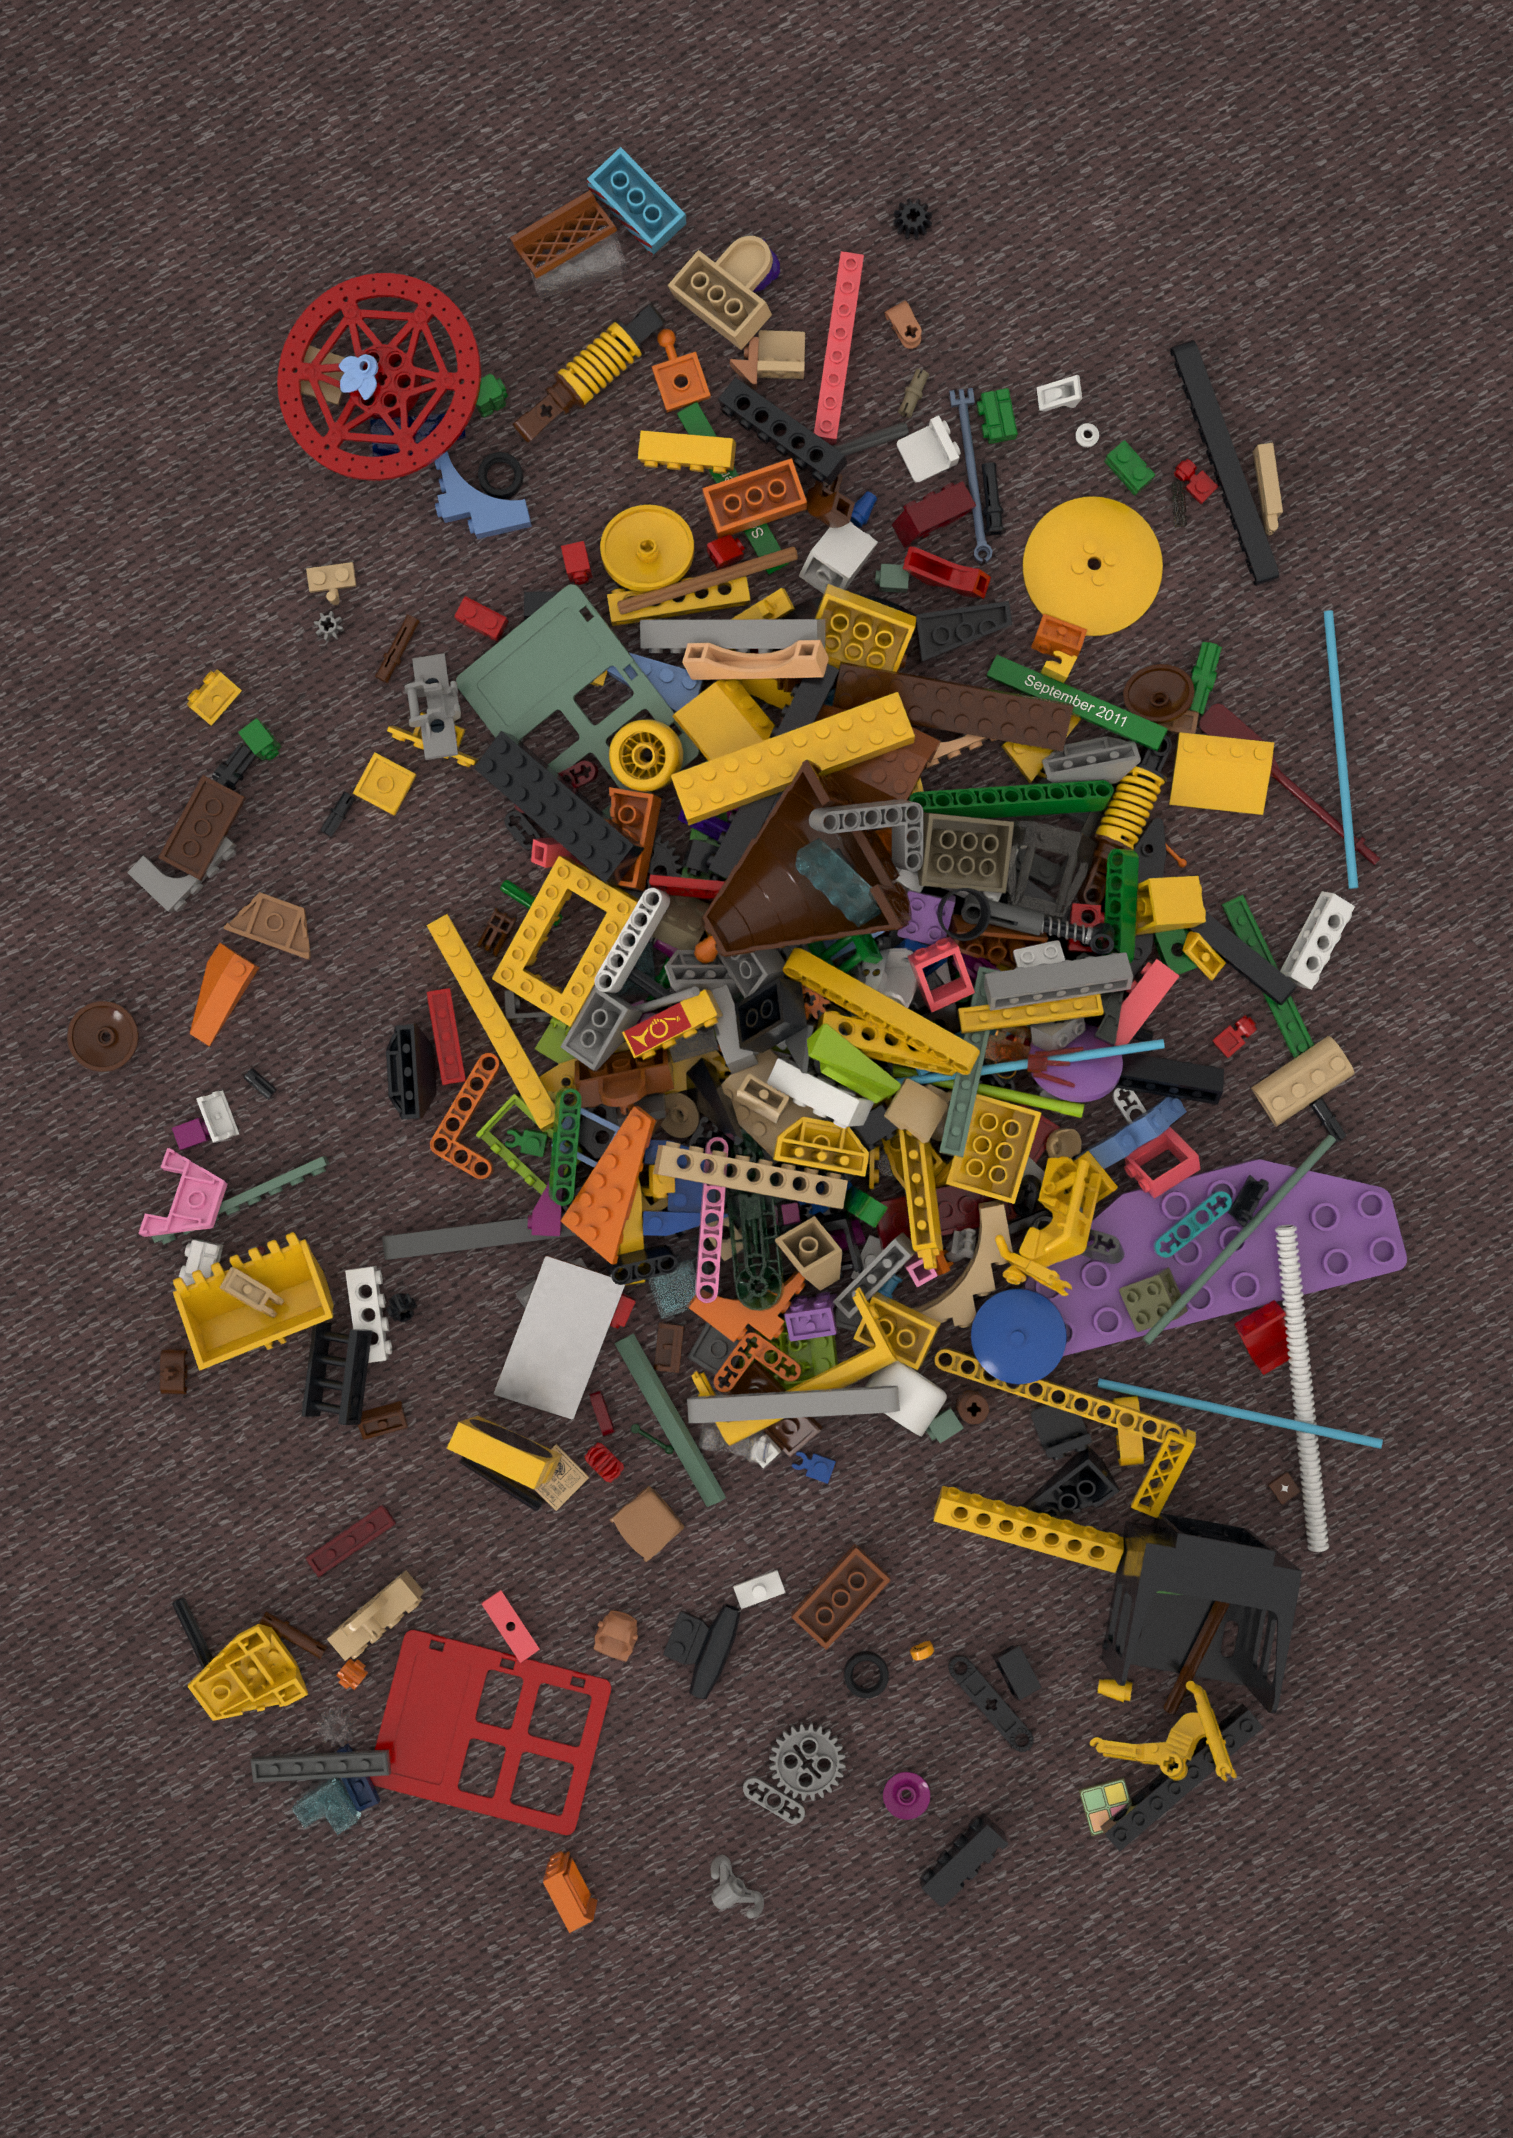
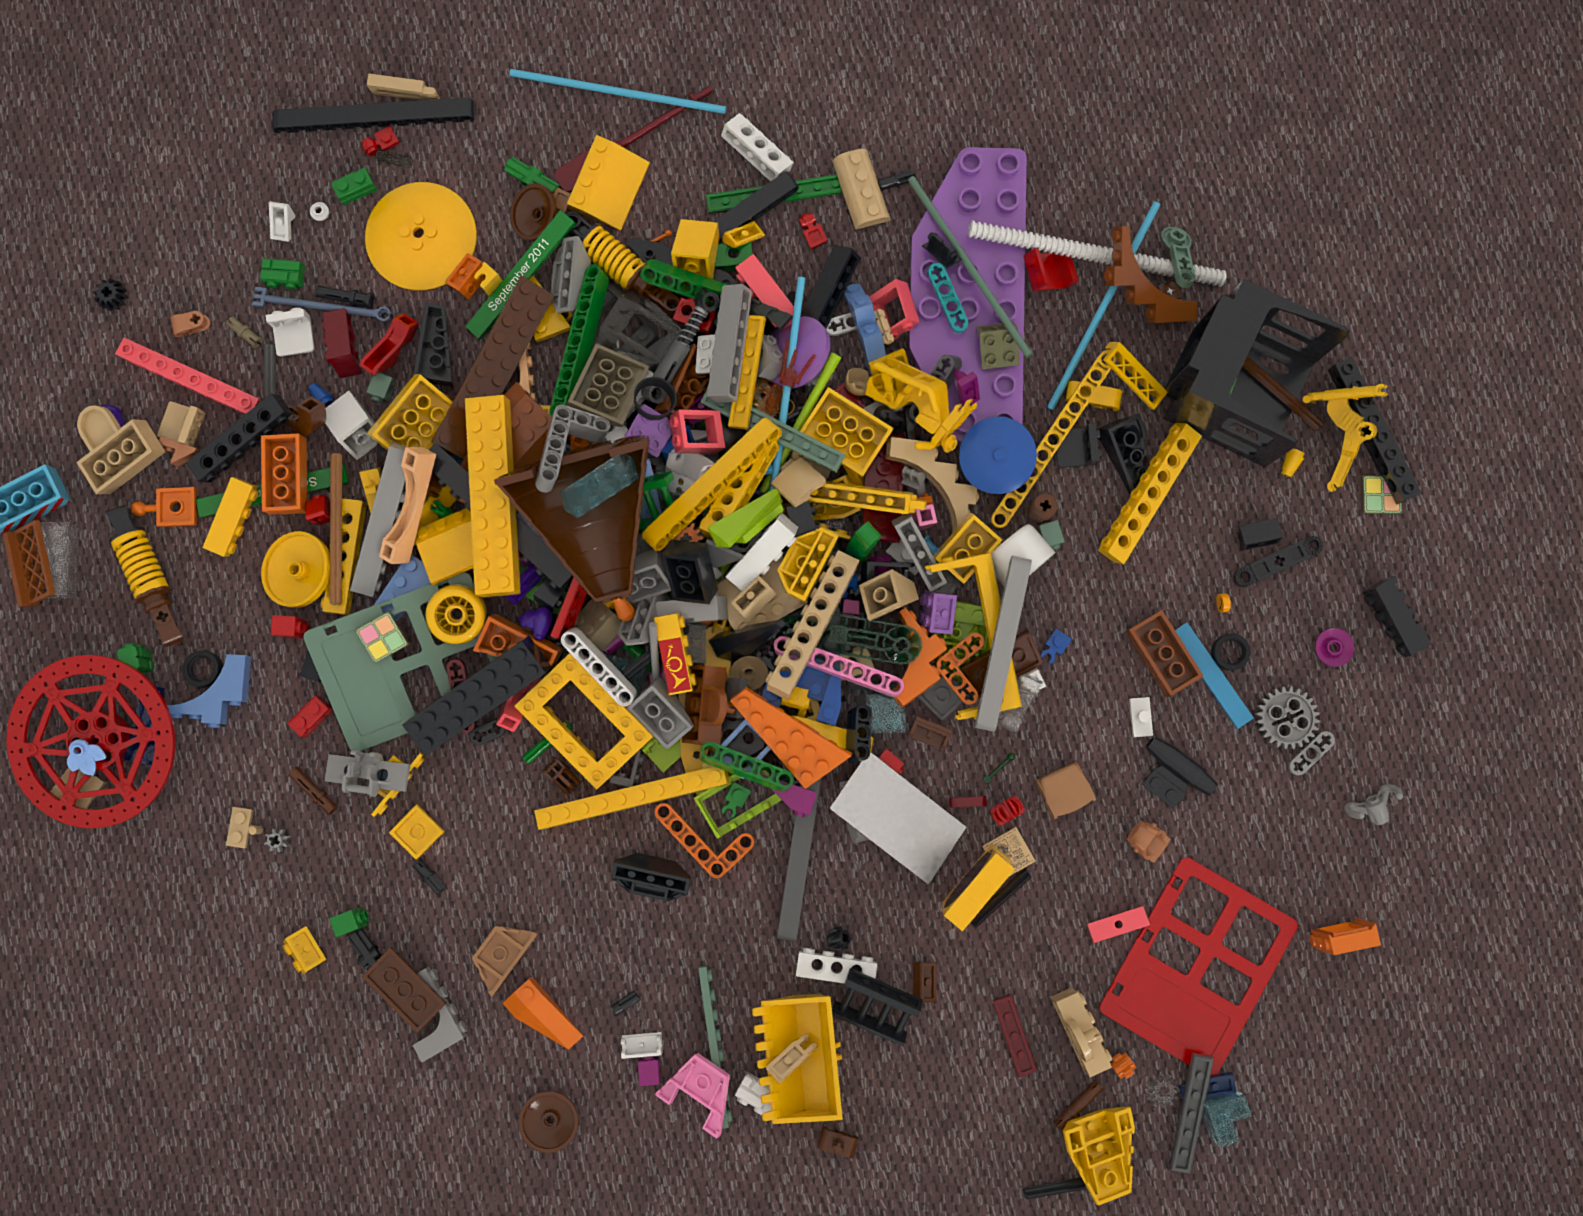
camera: 70 degrees left, 5 degrees down
(445, 1036) = (632, 840): red fence -> none
(595, 675) = (382, 637): none -> tile
(666, 851) = (537, 620): none -> dark purple hair
(670, 1420) = (988, 749): sand green tile -> none
(764, 698) = (441, 510): none -> green pin
(831, 1662) = (1215, 678): none -> dark azure tile
(1087, 1277) = (967, 386): none -> magenta tile
(1136, 1157) = (884, 326): none -> tan axle
(1267, 1452) = (1139, 290): none -> dark orange arch
(1346, 1482) = (1178, 244): none -> sand green beam

